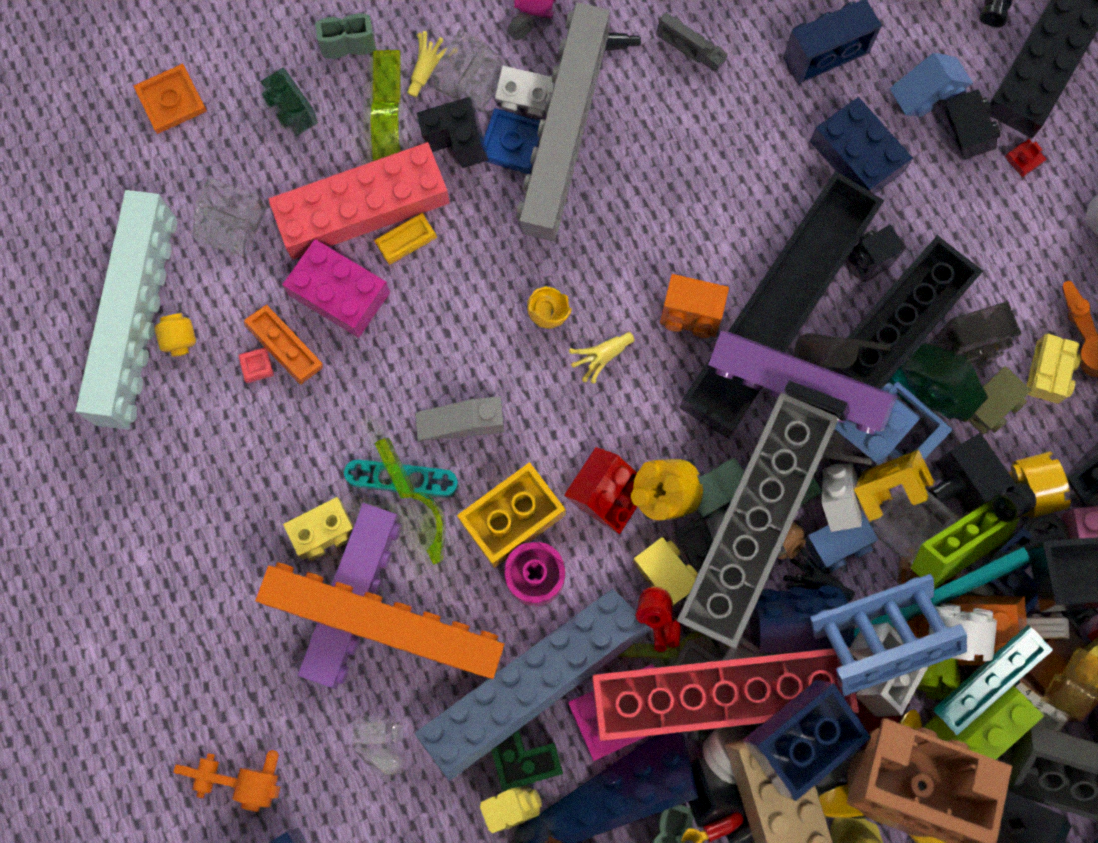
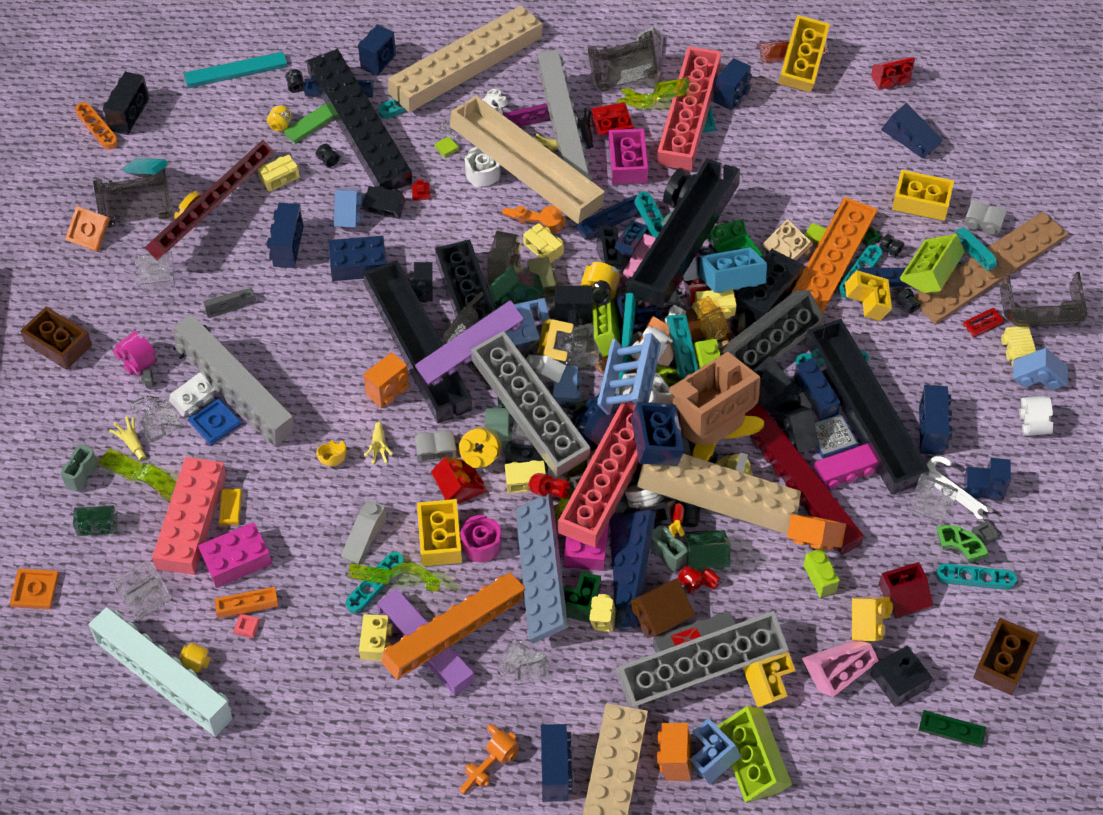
camera: 60 degrees left, 20 degrees down
(455, 126) = (188, 438): black brick -> none
(640, 427) = (435, 446): none -> light grey brick
(818, 399) = (492, 330): black tile -> none

